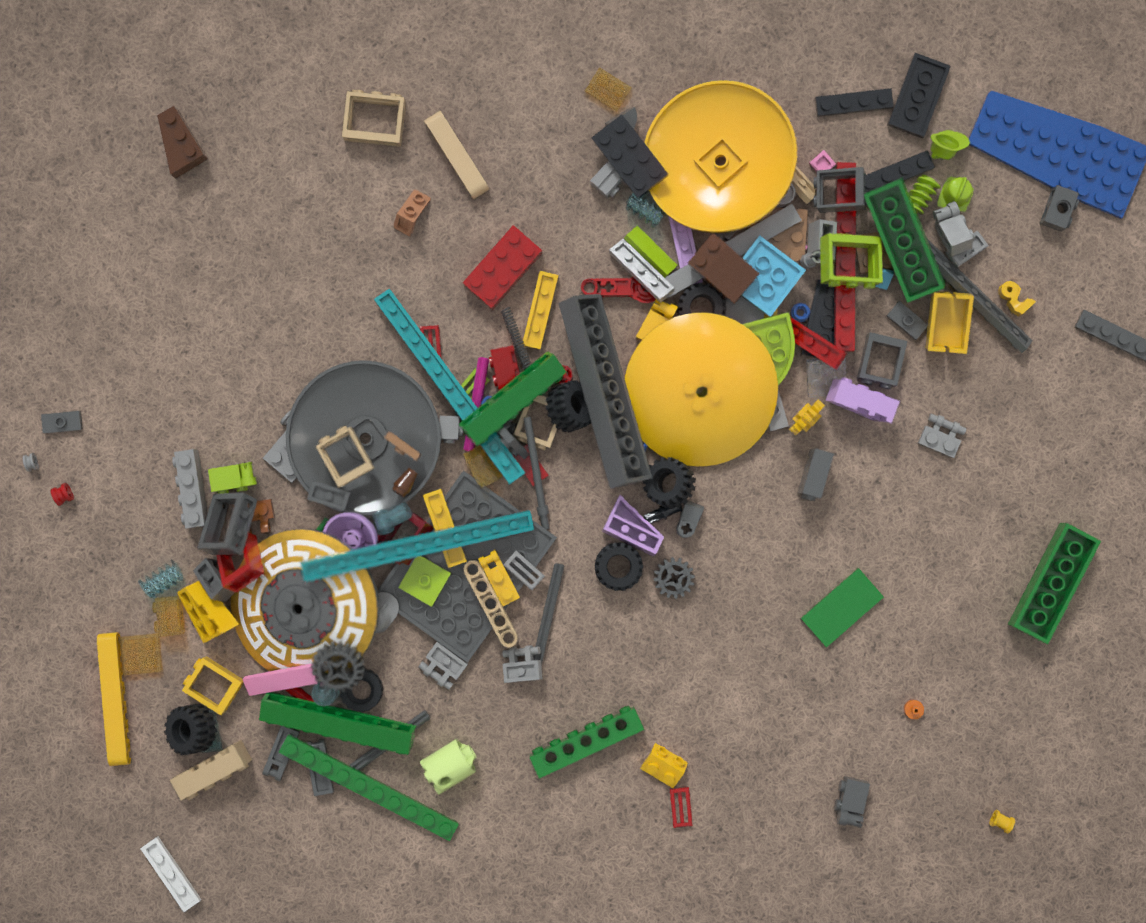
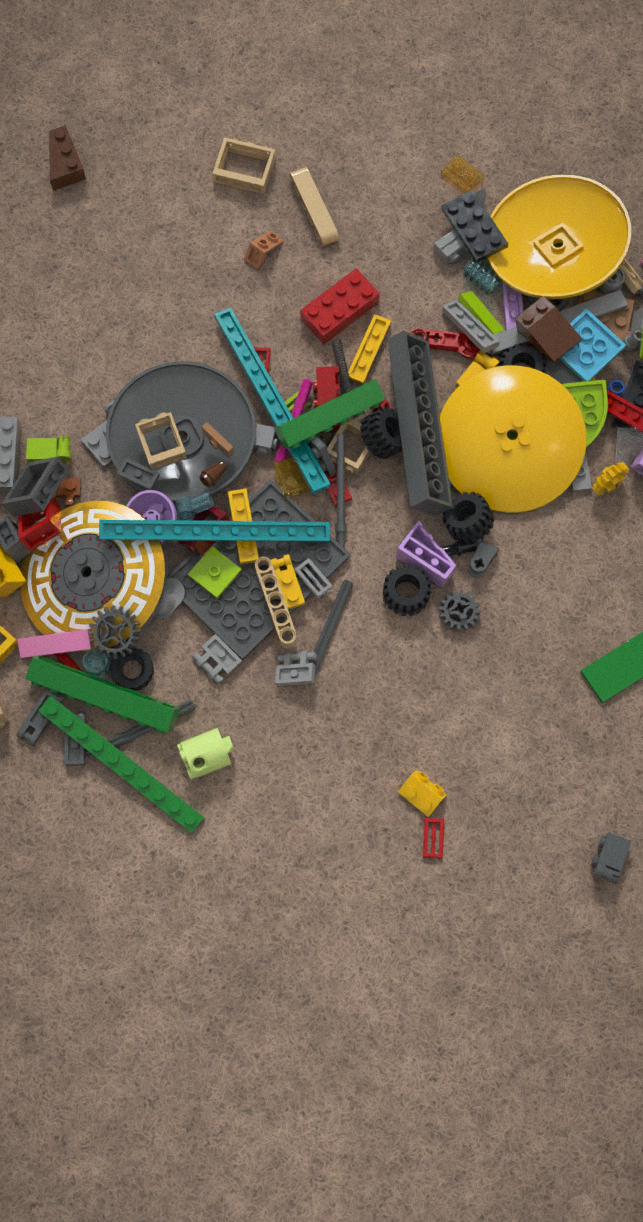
camera: 10 degrees right, 15 degrees down
(544, 767) = (340, 763): green brick -> none
(815, 474) = (612, 531): dark grey brick -> none

